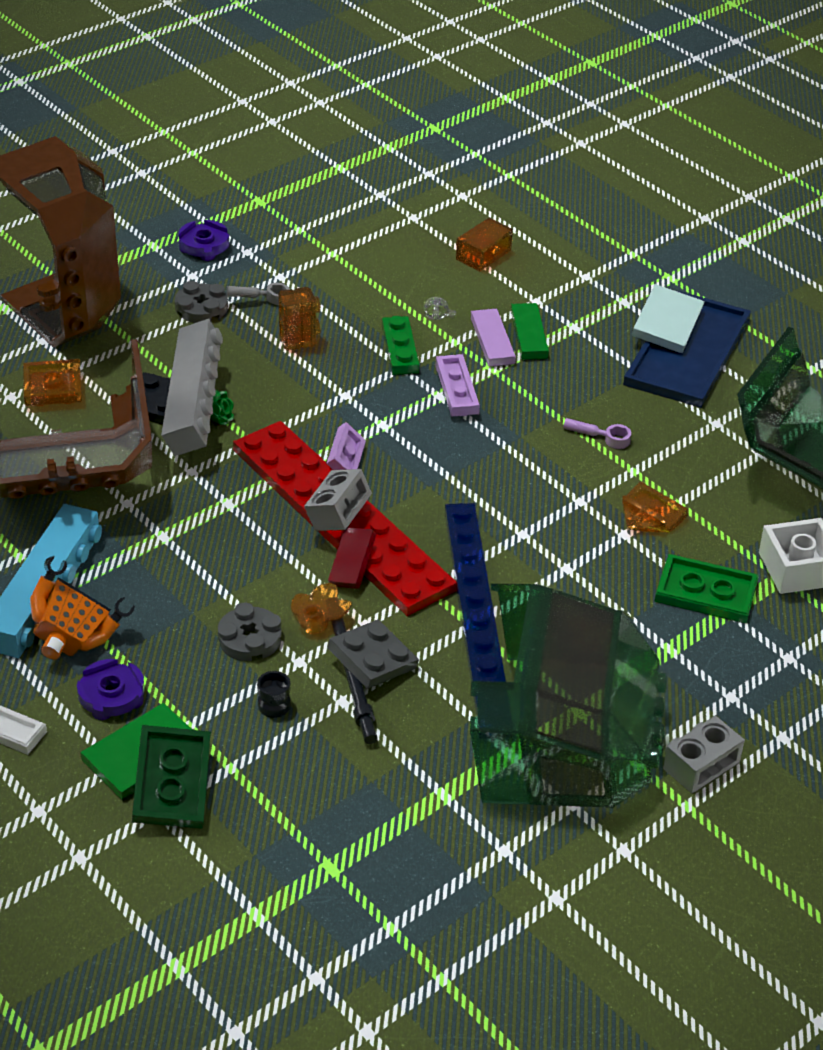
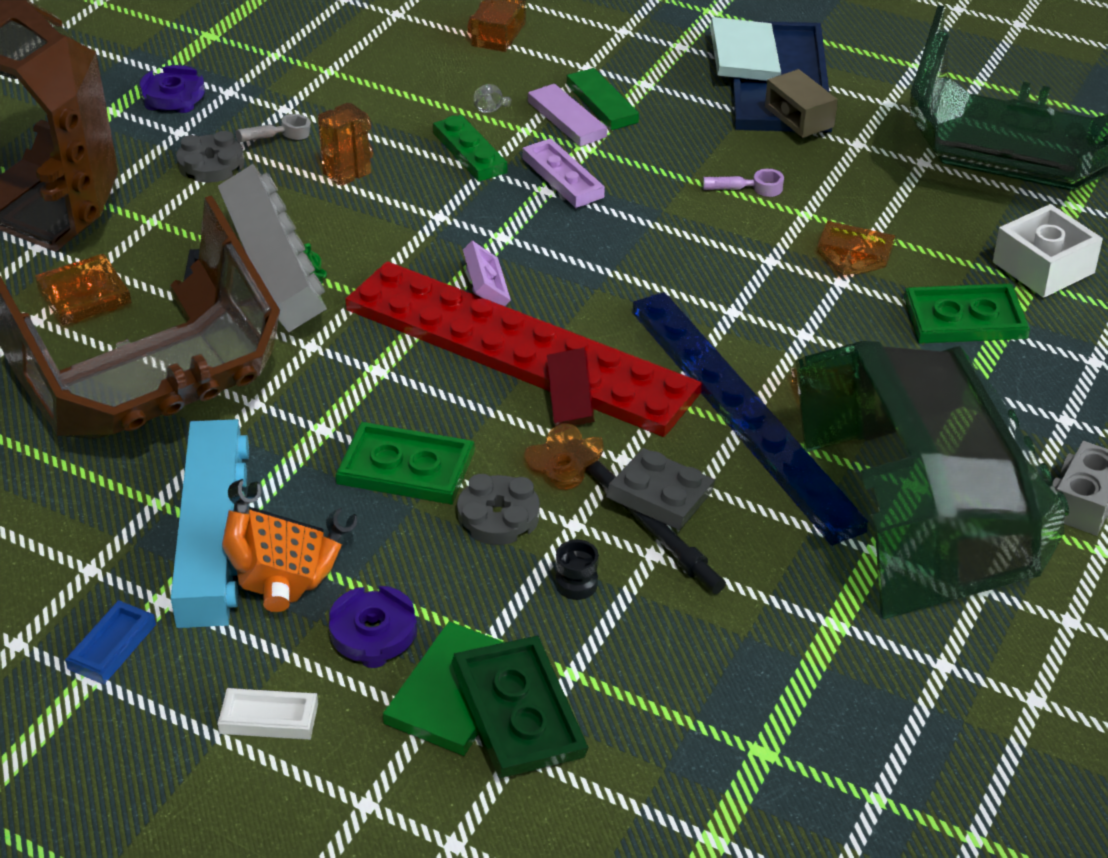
camera: 20 degrees left, 0 degrees up
(205, 578) = (405, 463): none -> green tile
(338, 499) = (522, 326): light grey brick -> none
(680, 377) = (801, 103): none -> dark tan brick

